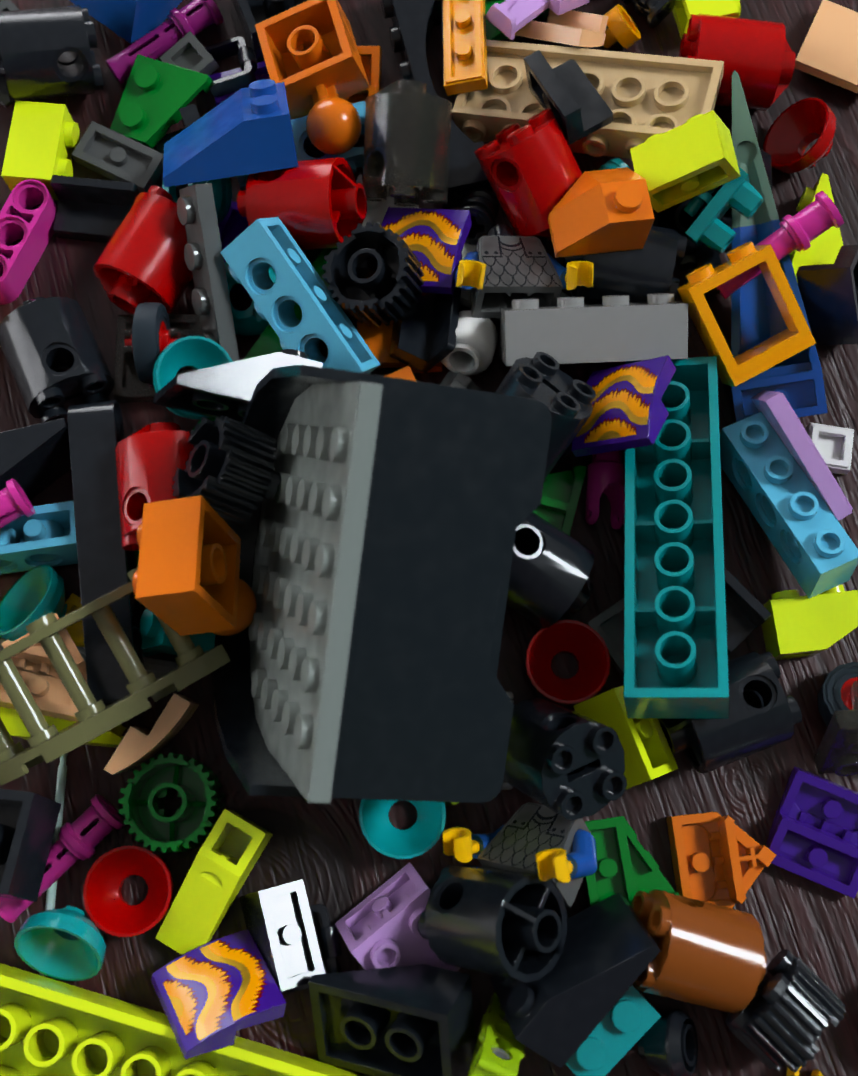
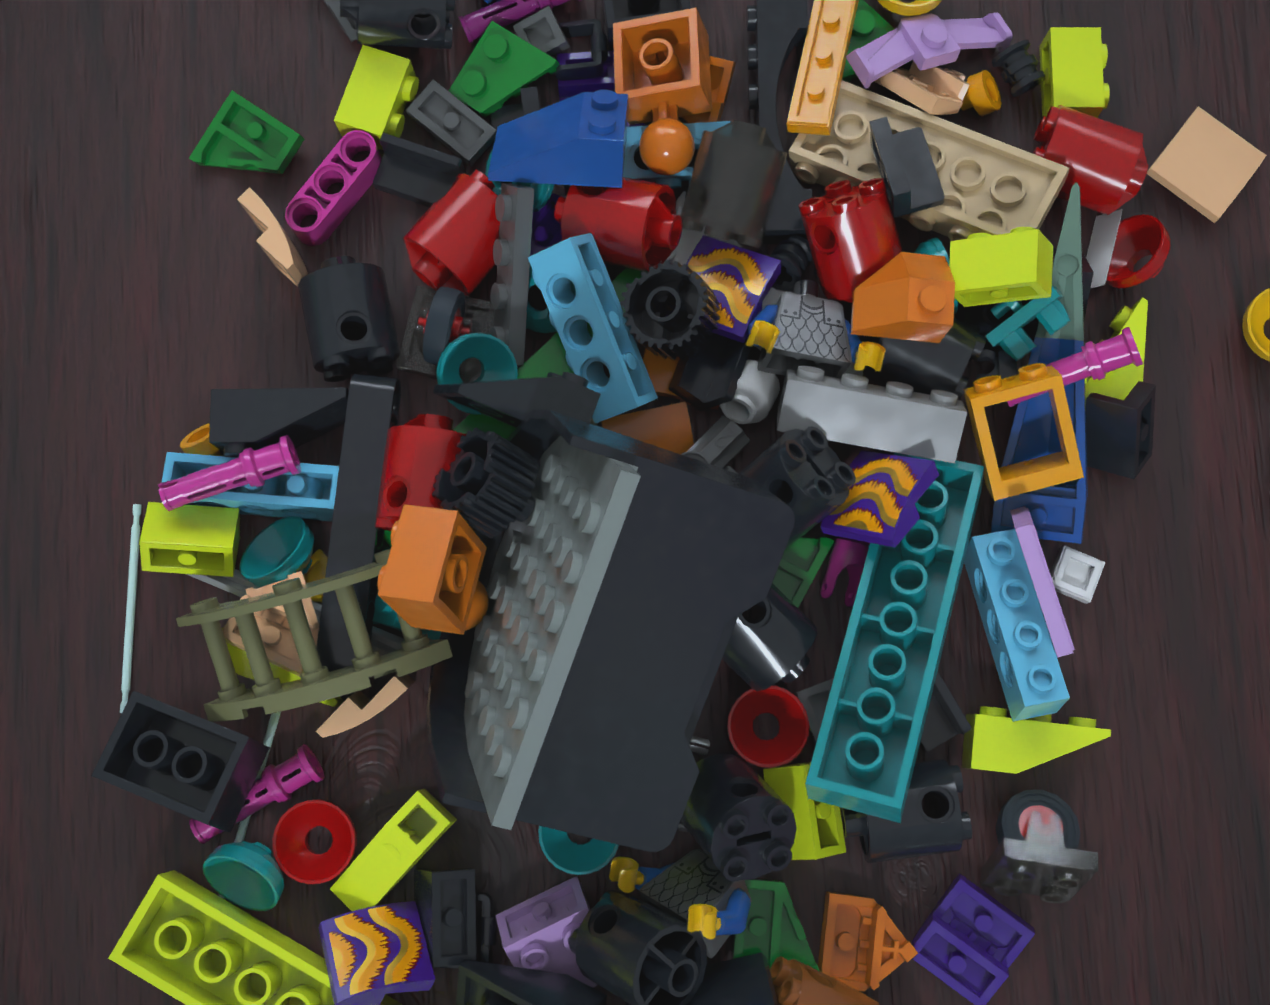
camera: 15 degrees right, 5 degrees up
(157, 782) = (350, 786): green brick -> none
(770, 136) = (1102, 246): none -> white sticker

